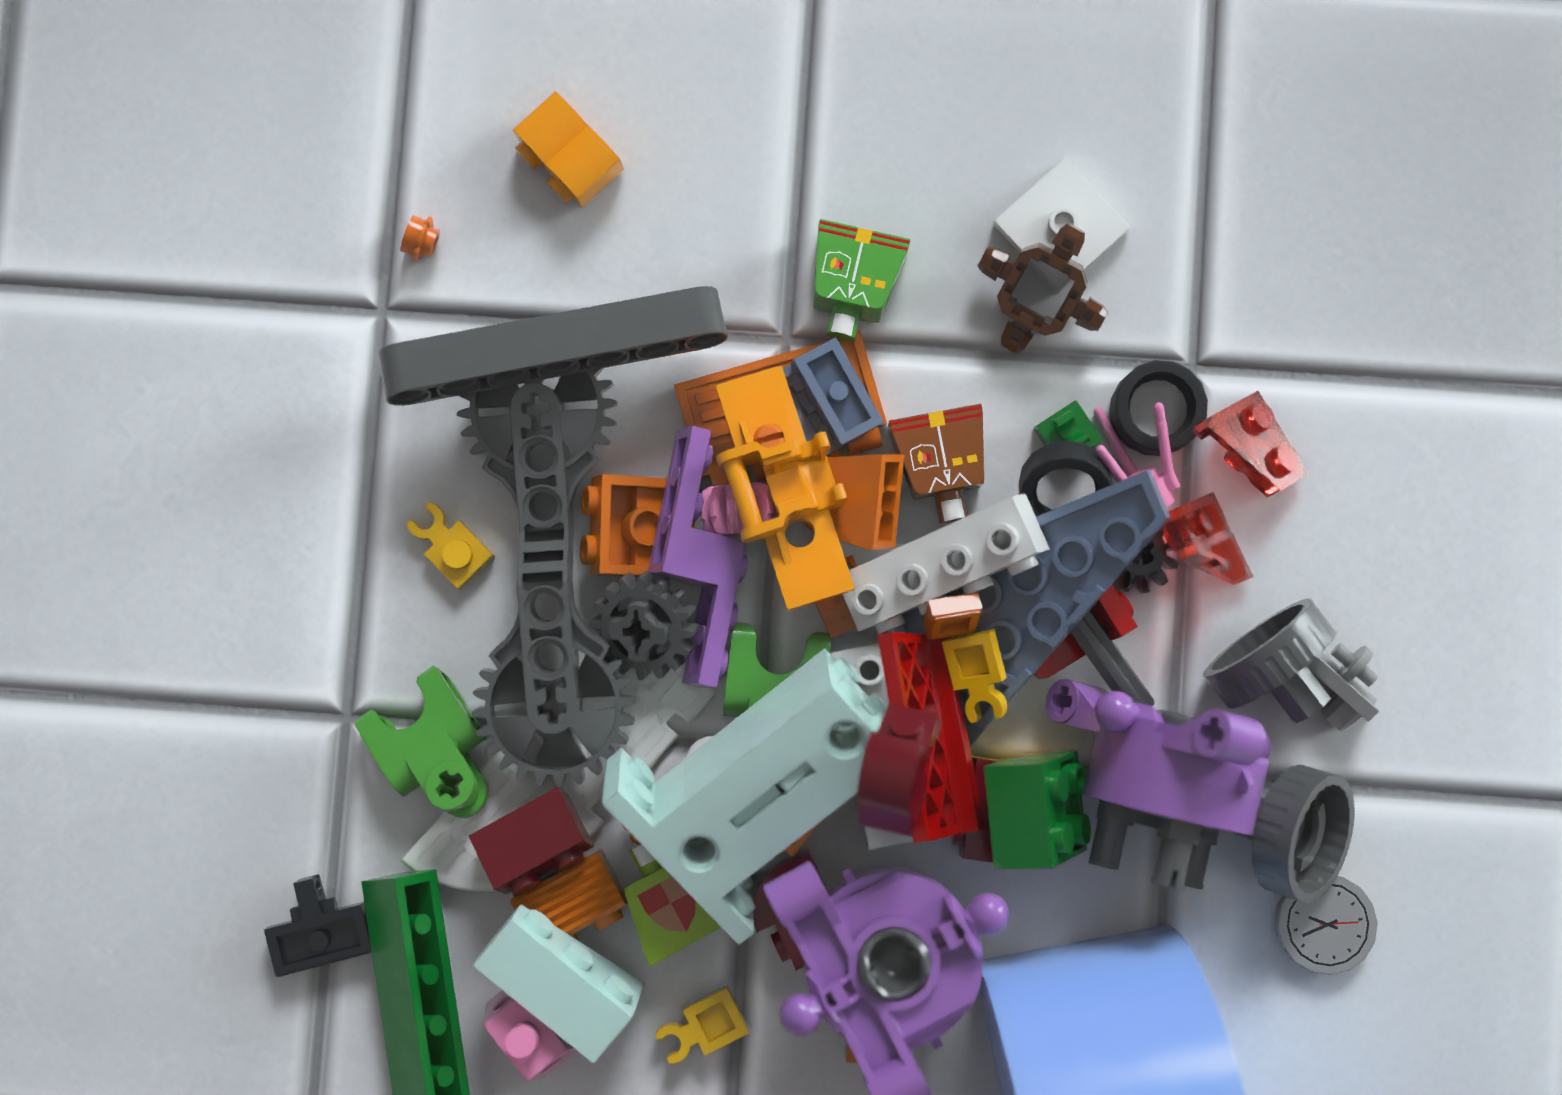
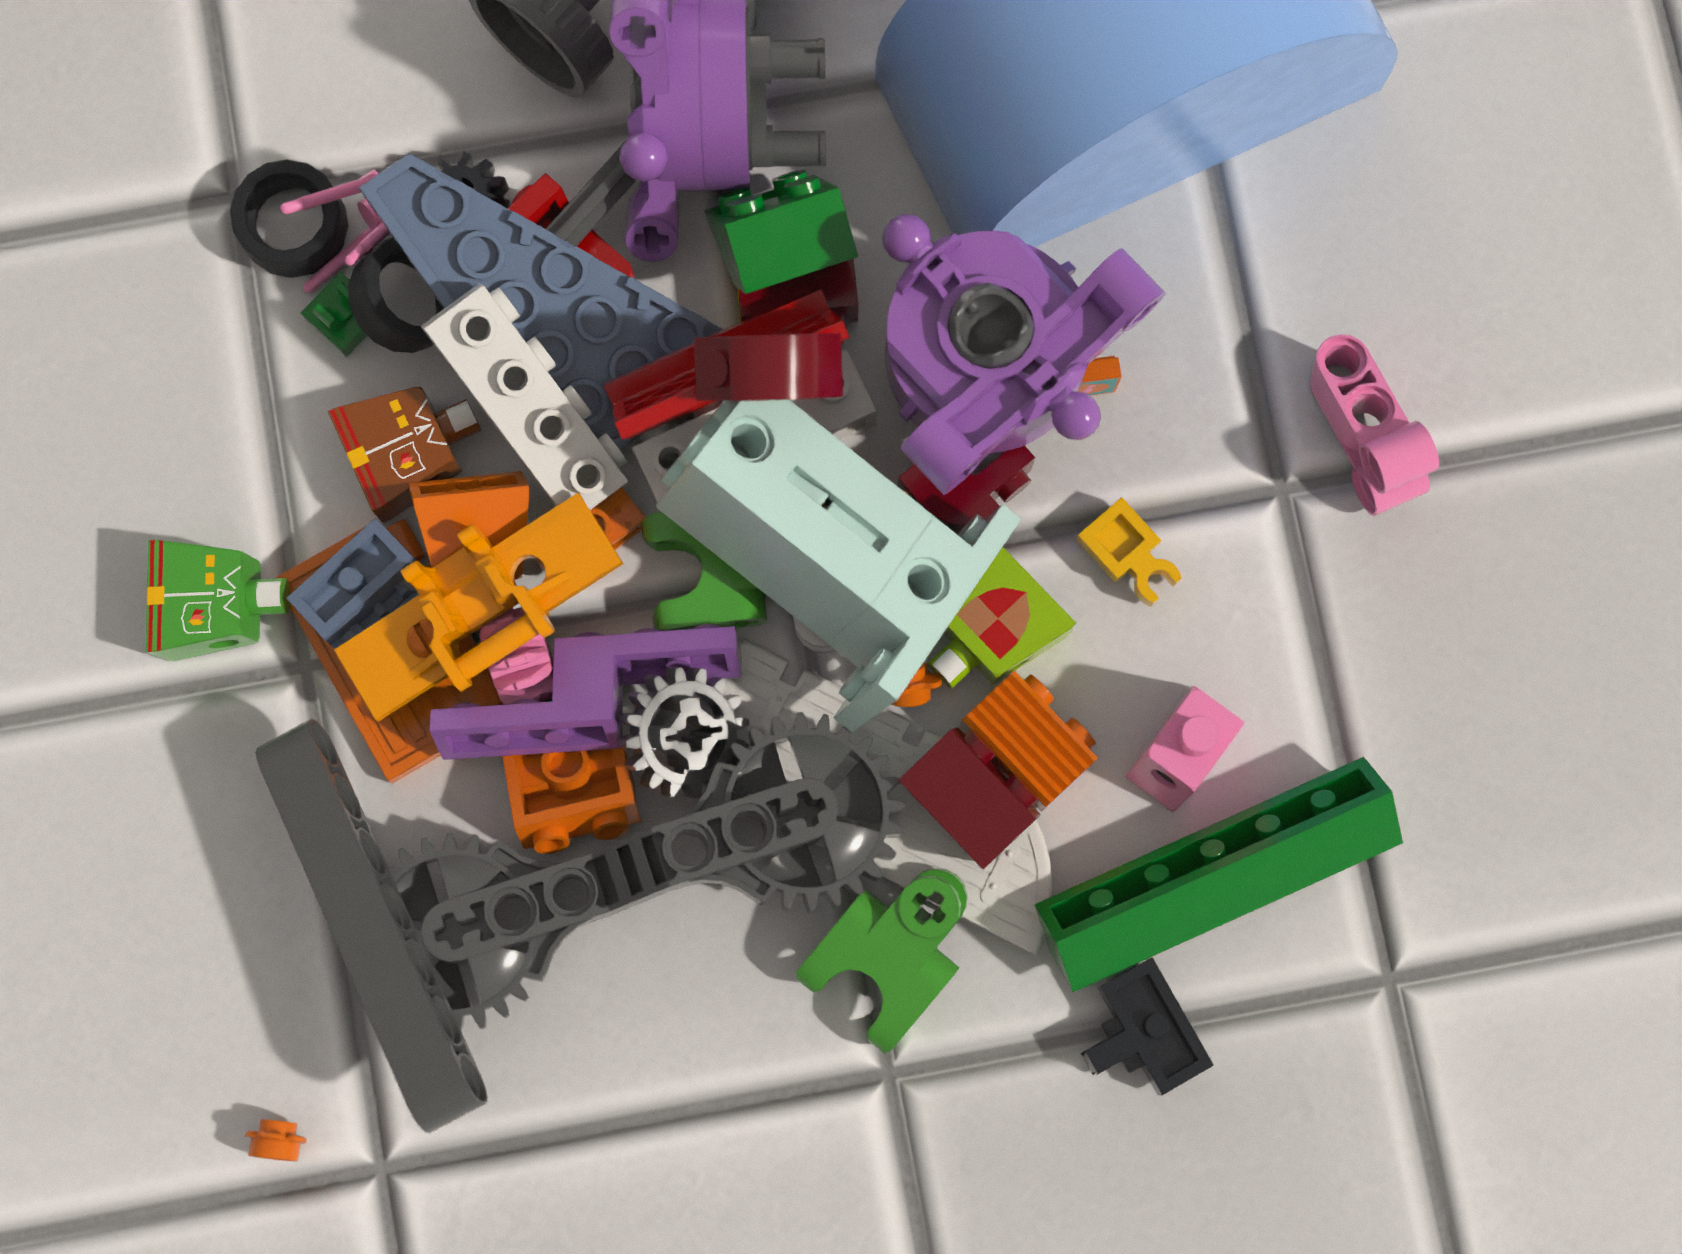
camera: 110 degrees left, 5 degrees down
(454, 550) = (652, 993): yellow plate -> none
(561, 981) = (1120, 715): light aqua wedge -> none
(567, 150) = (125, 986): light orange brick -> none
(952, 616) = (583, 375): orange tile -> none
(976, 665) = (635, 338): yellow plate -> none
(1051, 203) = (96, 380): white plate -> none
(1088, 313) = (194, 319): reddish brown piece -> none
(1206, 540) = (430, 125): clear red wing -> none
(1254, 444) = (304, 100): clear red wing -> none

